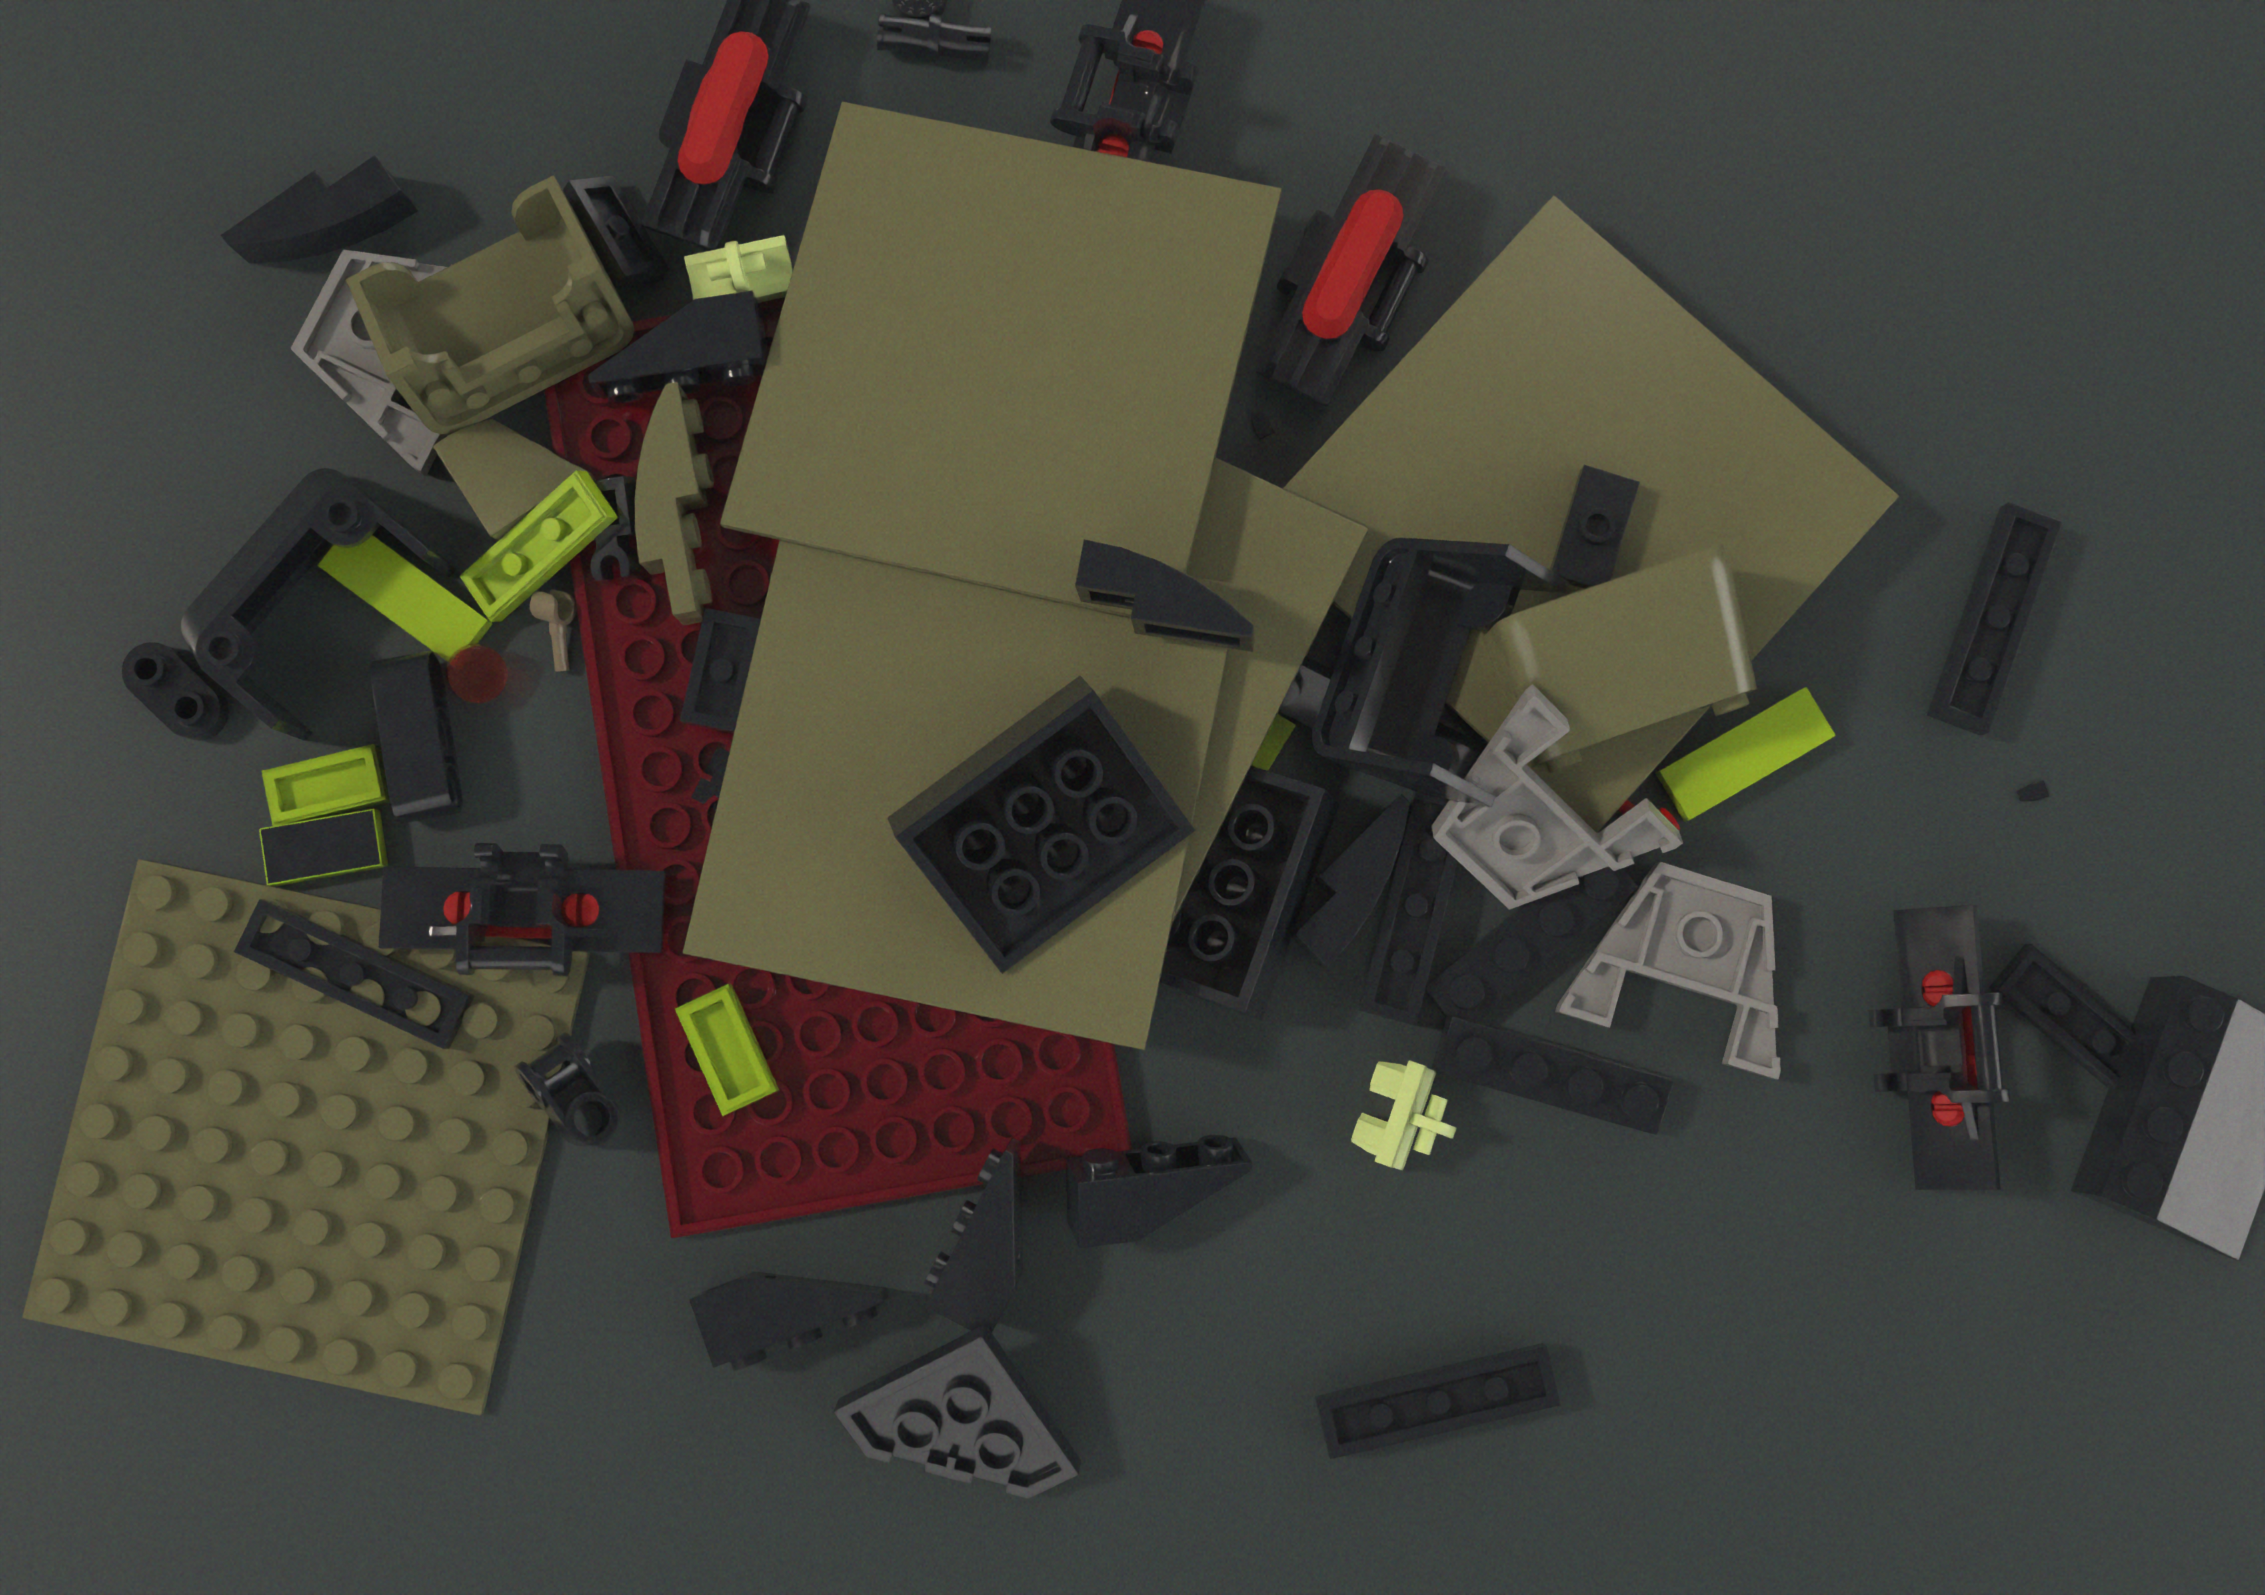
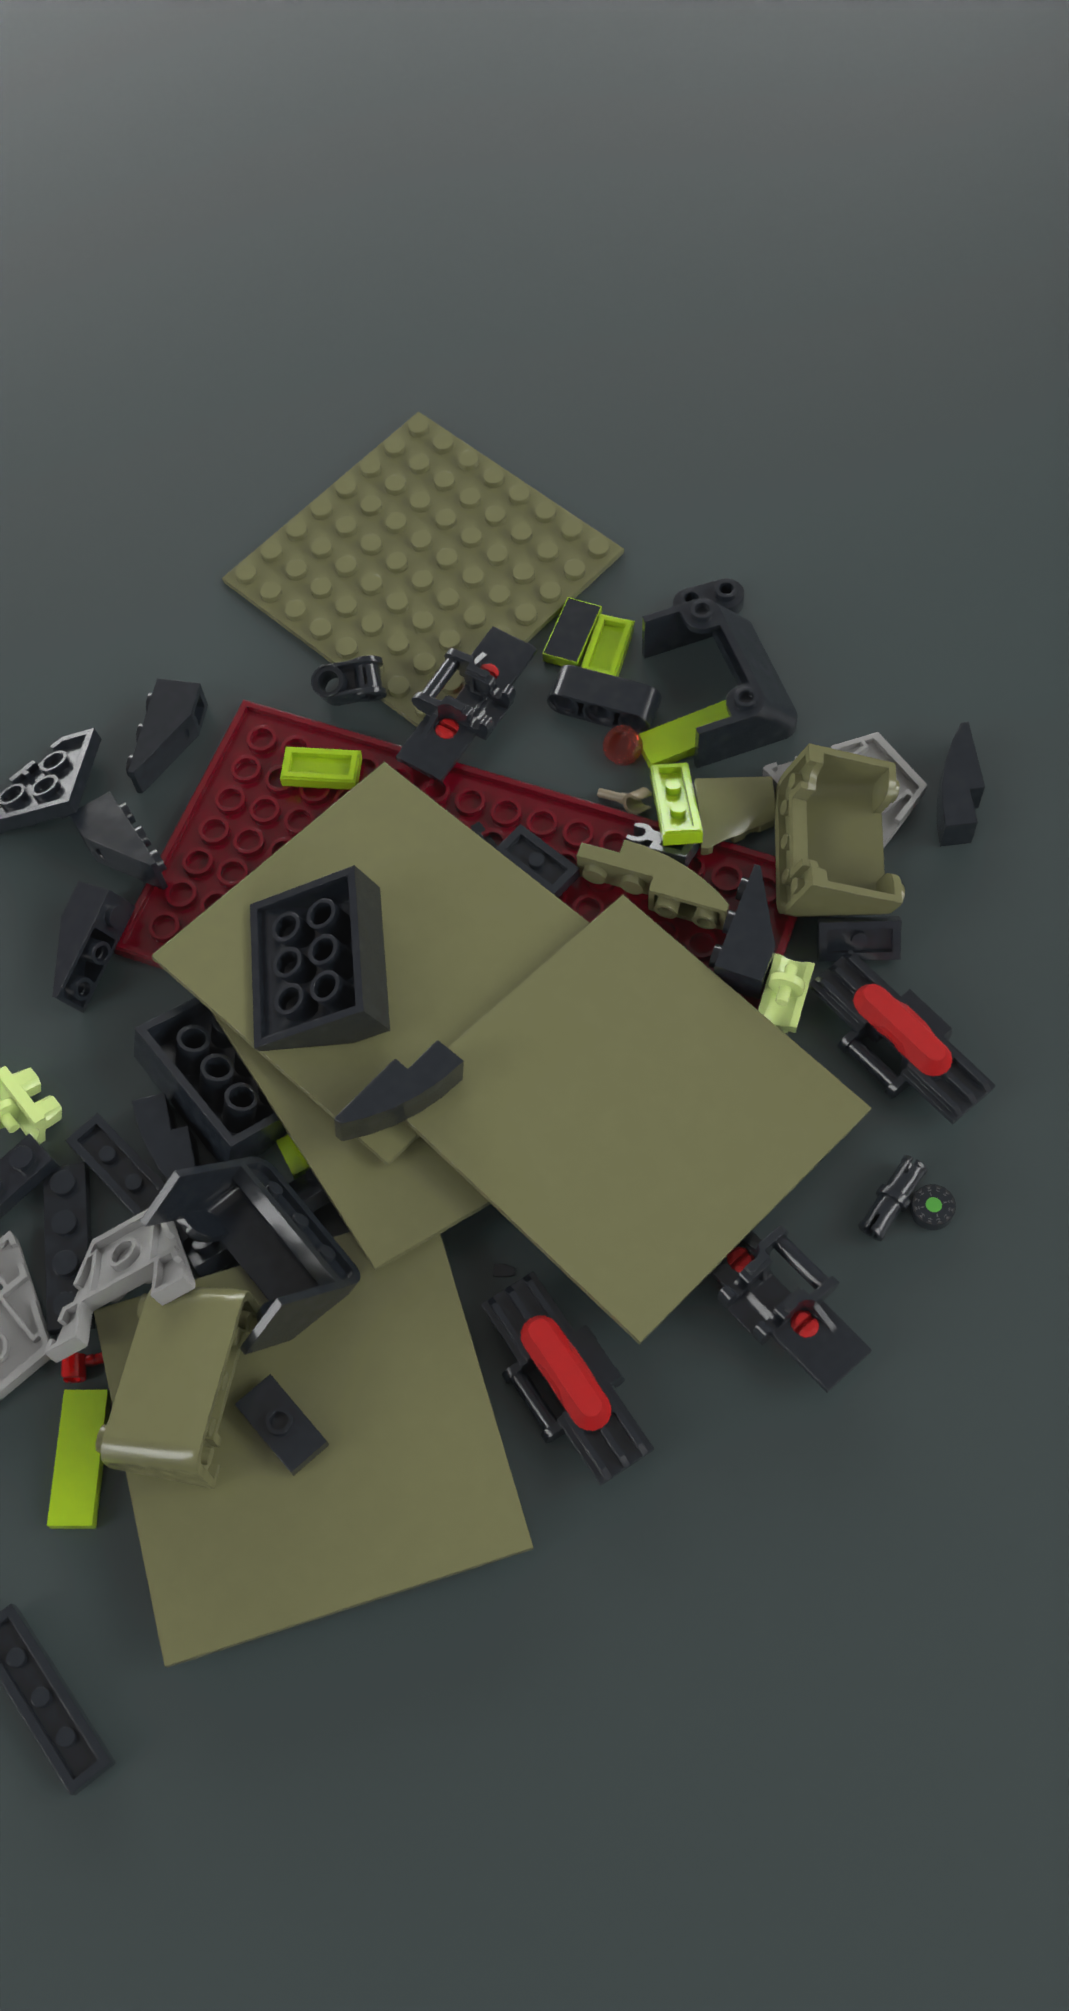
camera: 130 degrees right, 20 degrees down
(347, 965) = (522, 591): black plate -> none

